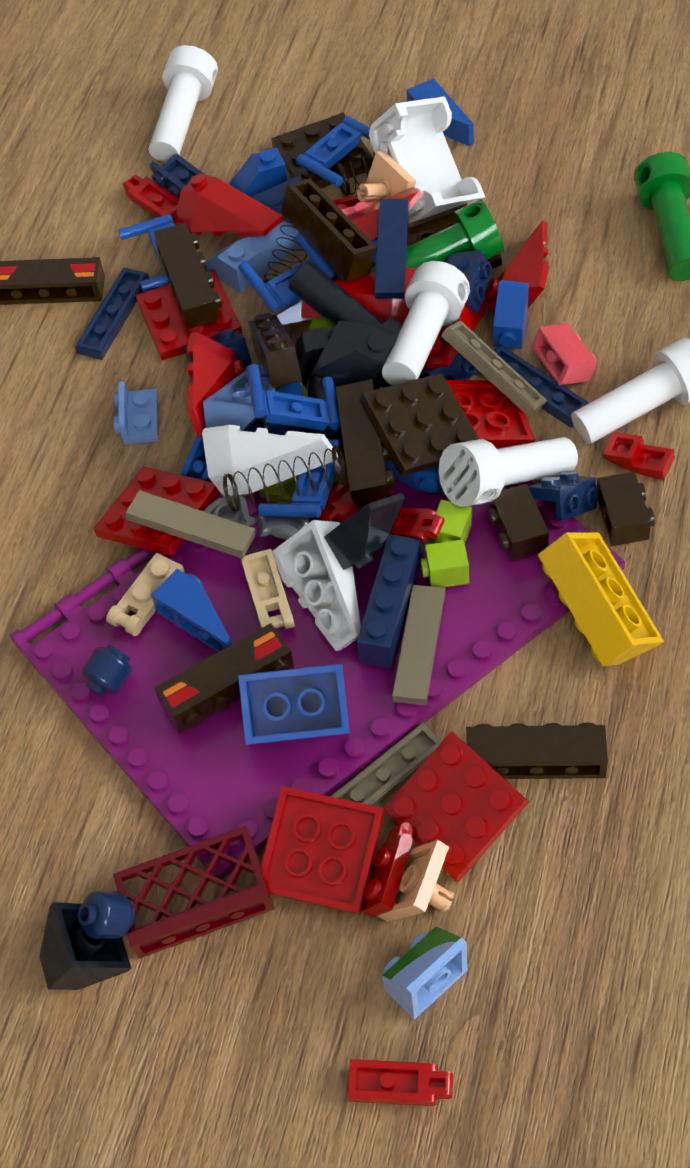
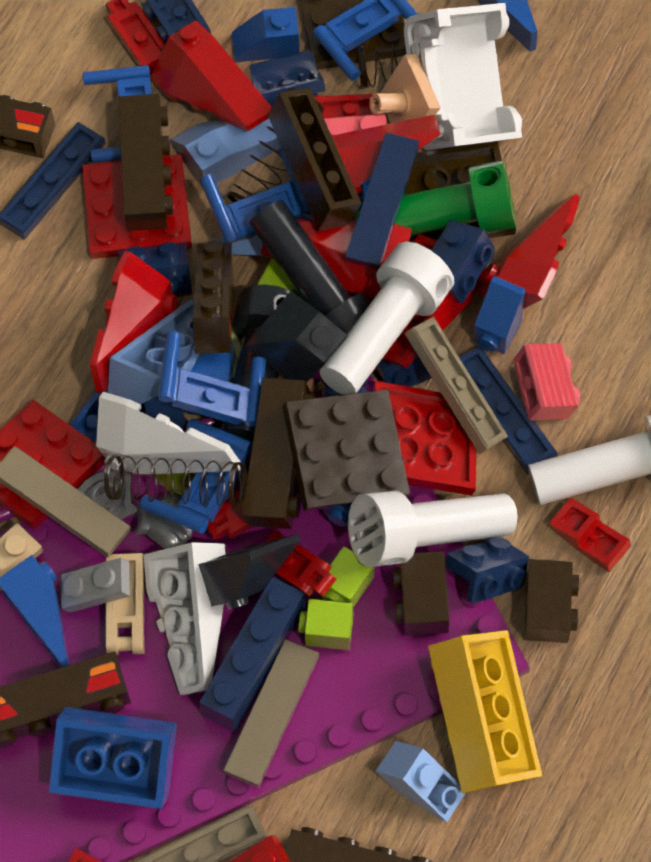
camera: 10 degrees right, 10 degrees up
(137, 415) = (44, 328): medium blue bracket -> none
(238, 581) = (95, 585): none -> light grey plate
(563, 665) = (421, 779): none -> light blue slope

